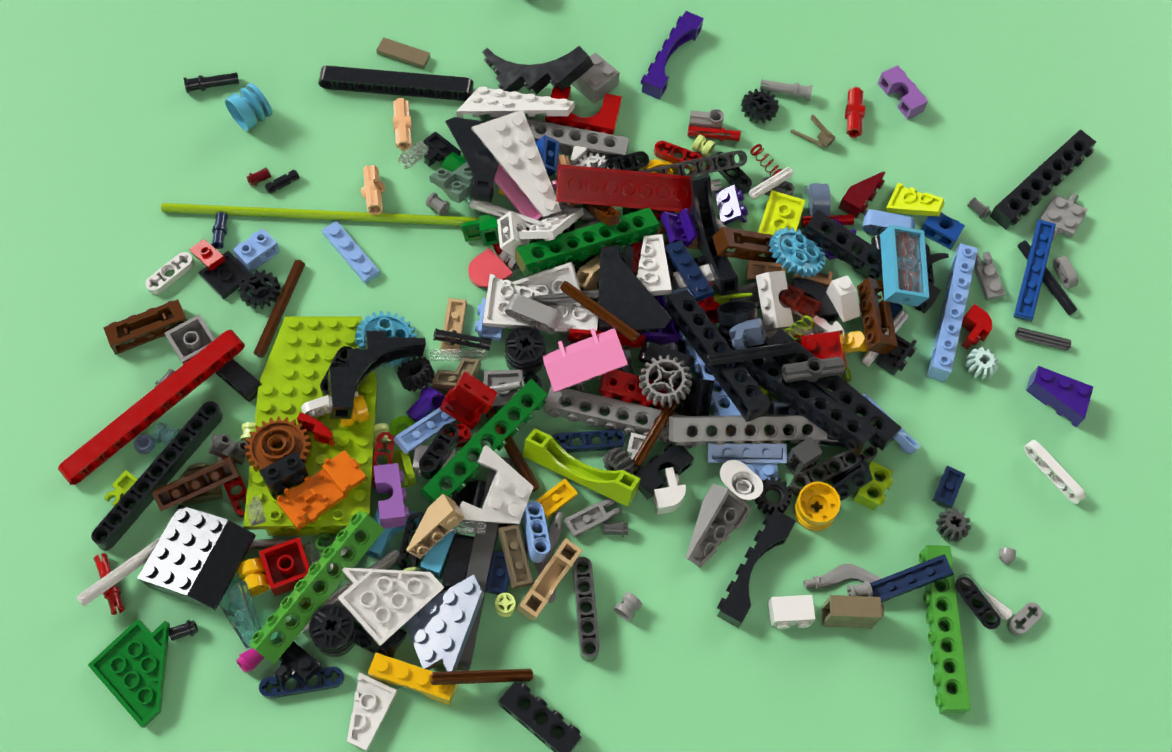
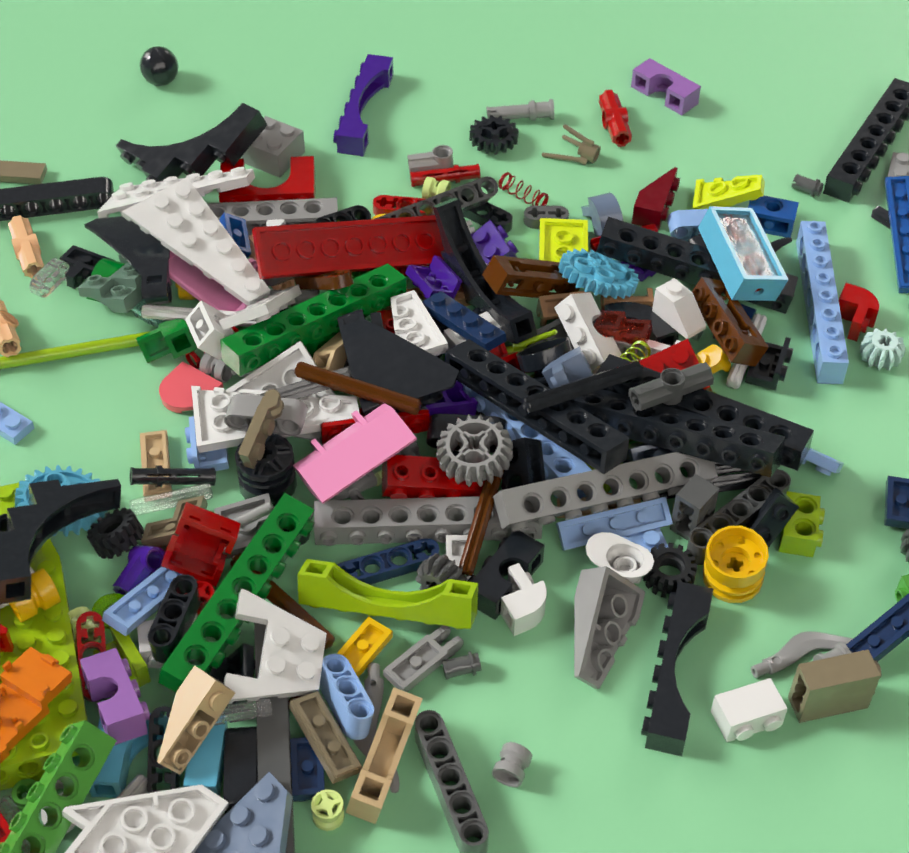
camera: 10 degrees left, 15 degrees down
(437, 203) = (94, 325): light grey bush -> none
(526, 327) = (260, 428): none -> dark tan hinge
(771, 183) = (537, 210): white axle -> none
(988, 277) = (850, 256): light grey hinge -> none

